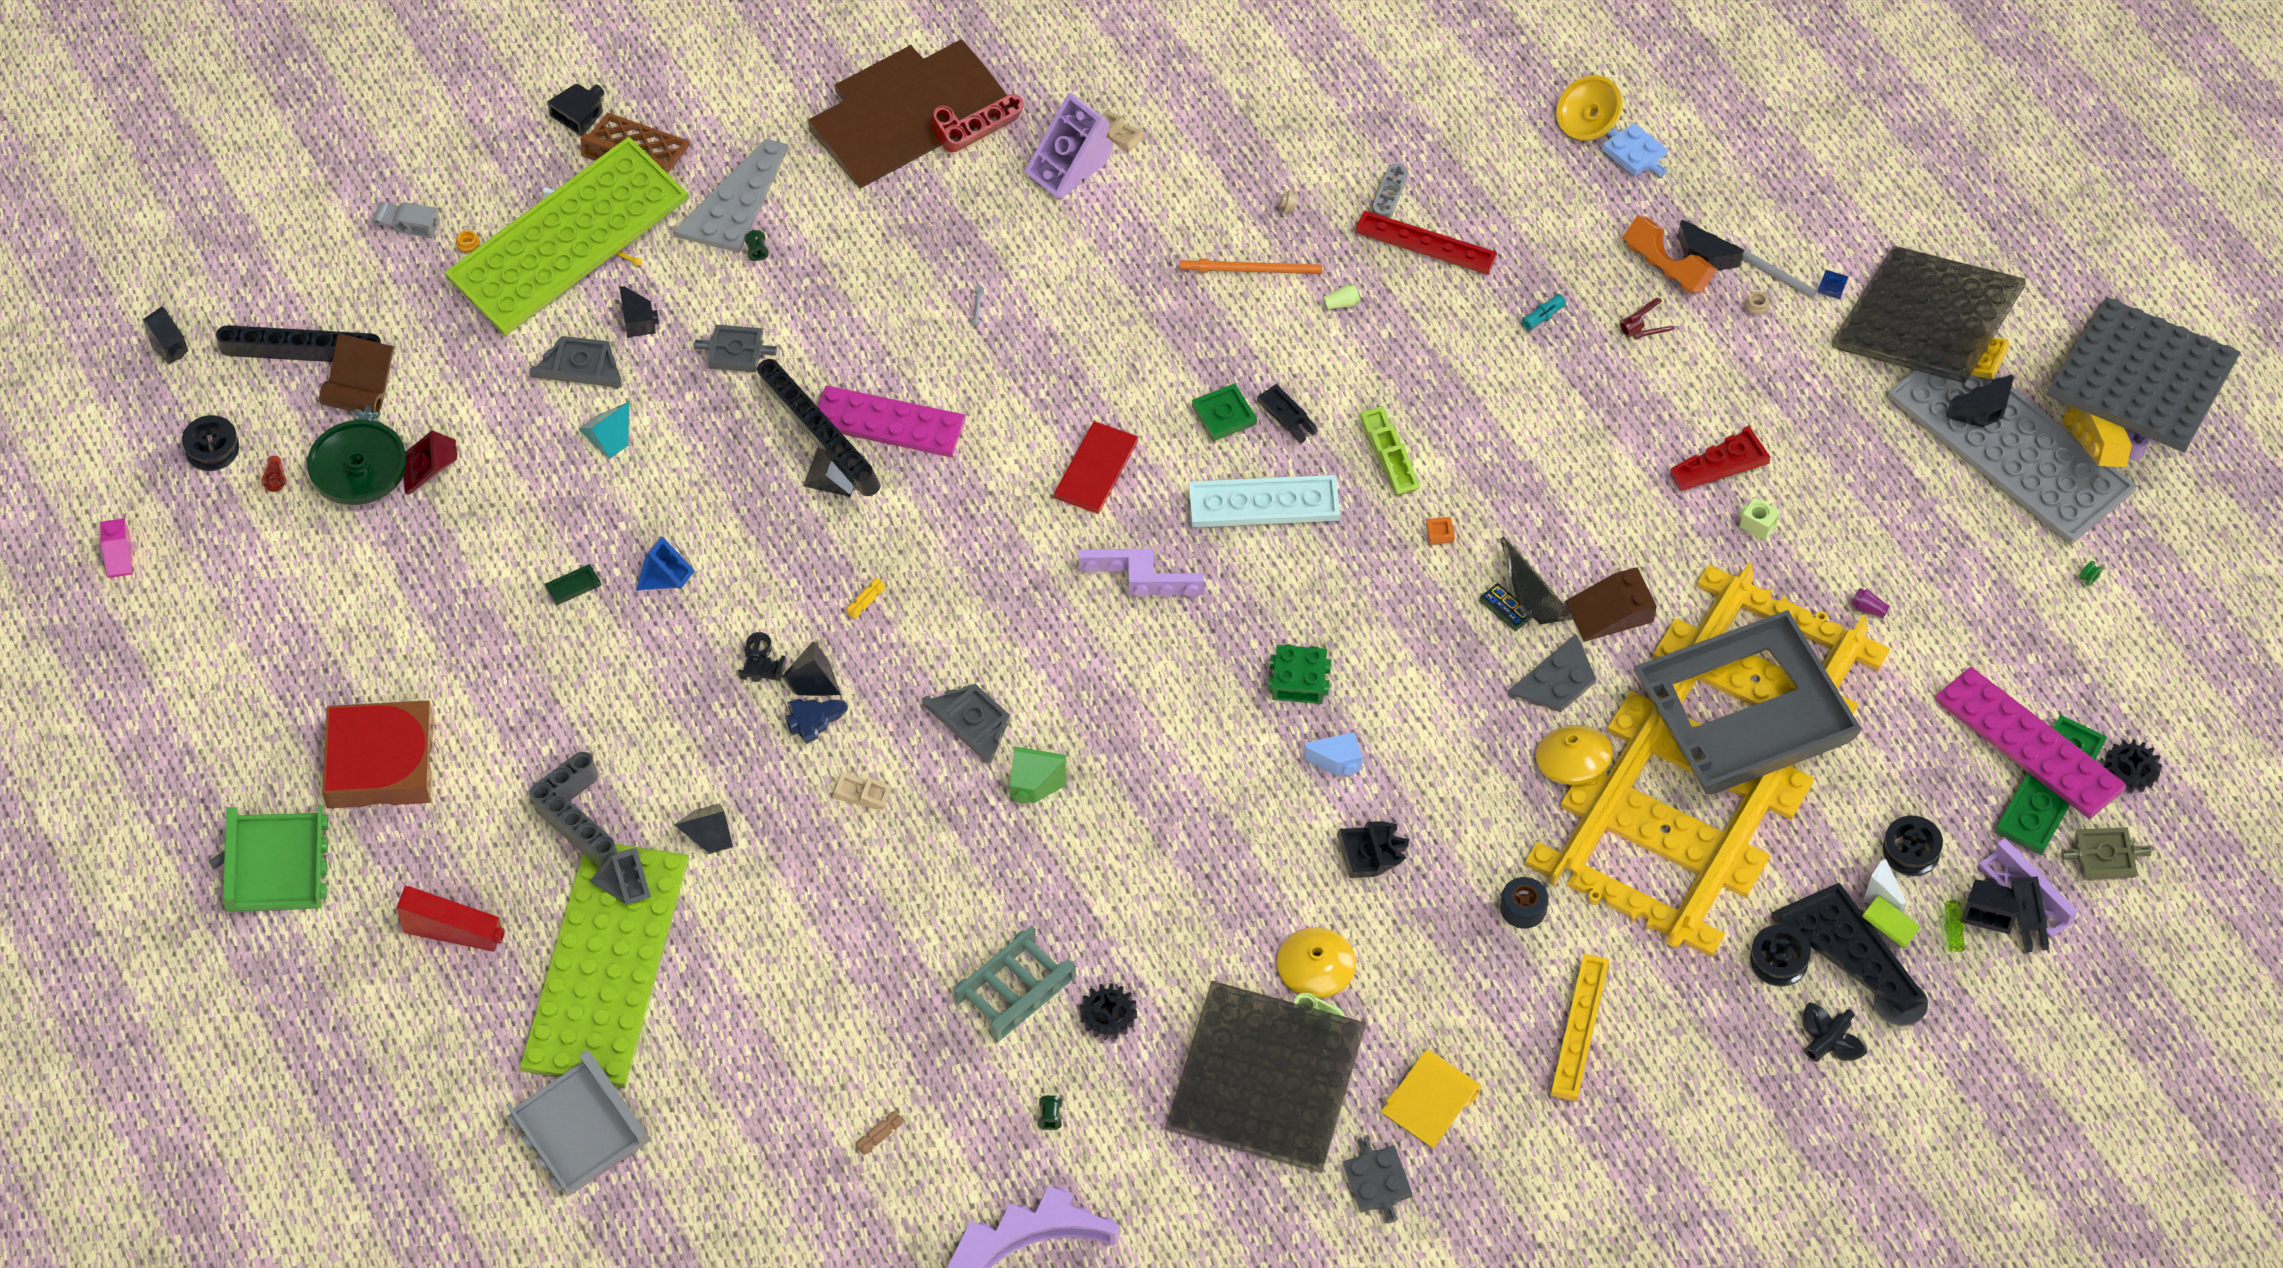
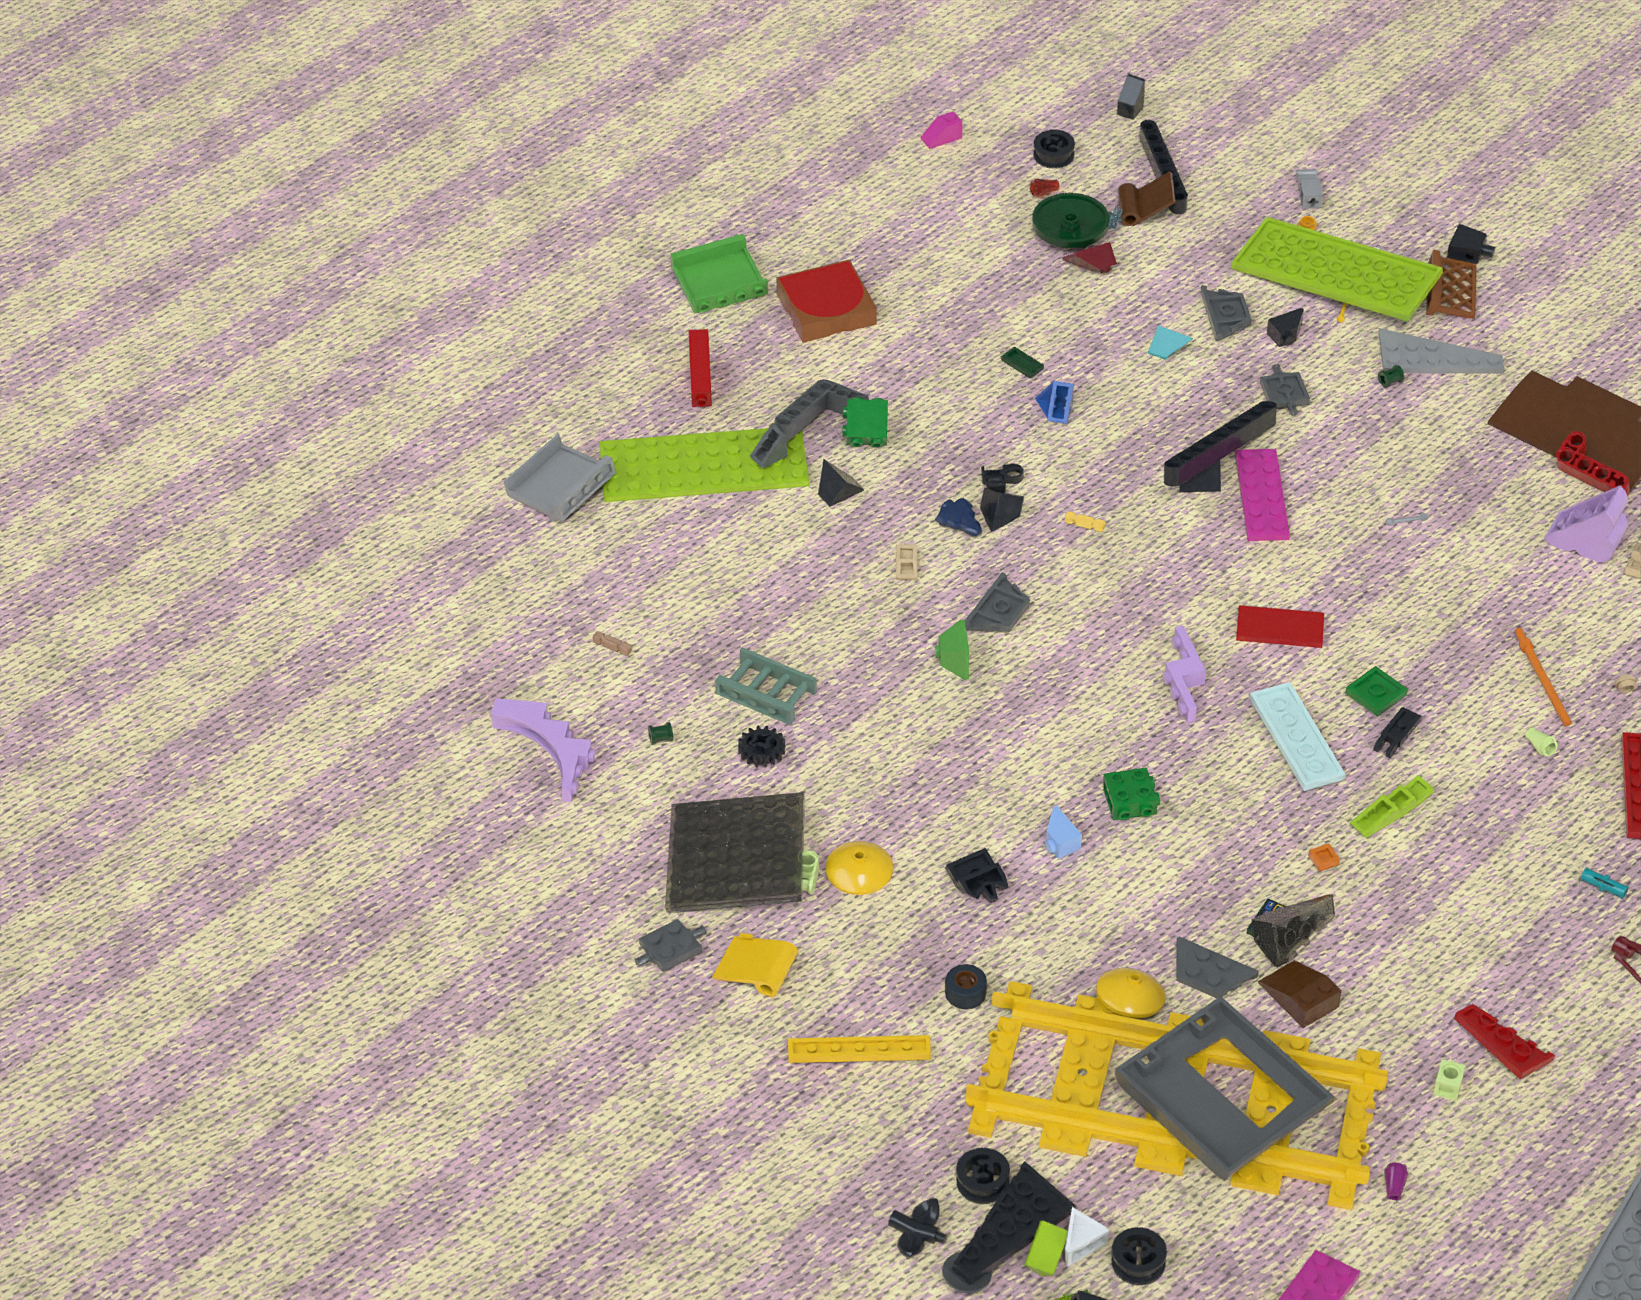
camera: 75 degrees right, 10 degrees down
(624, 765) = (865, 422): none -> green brick

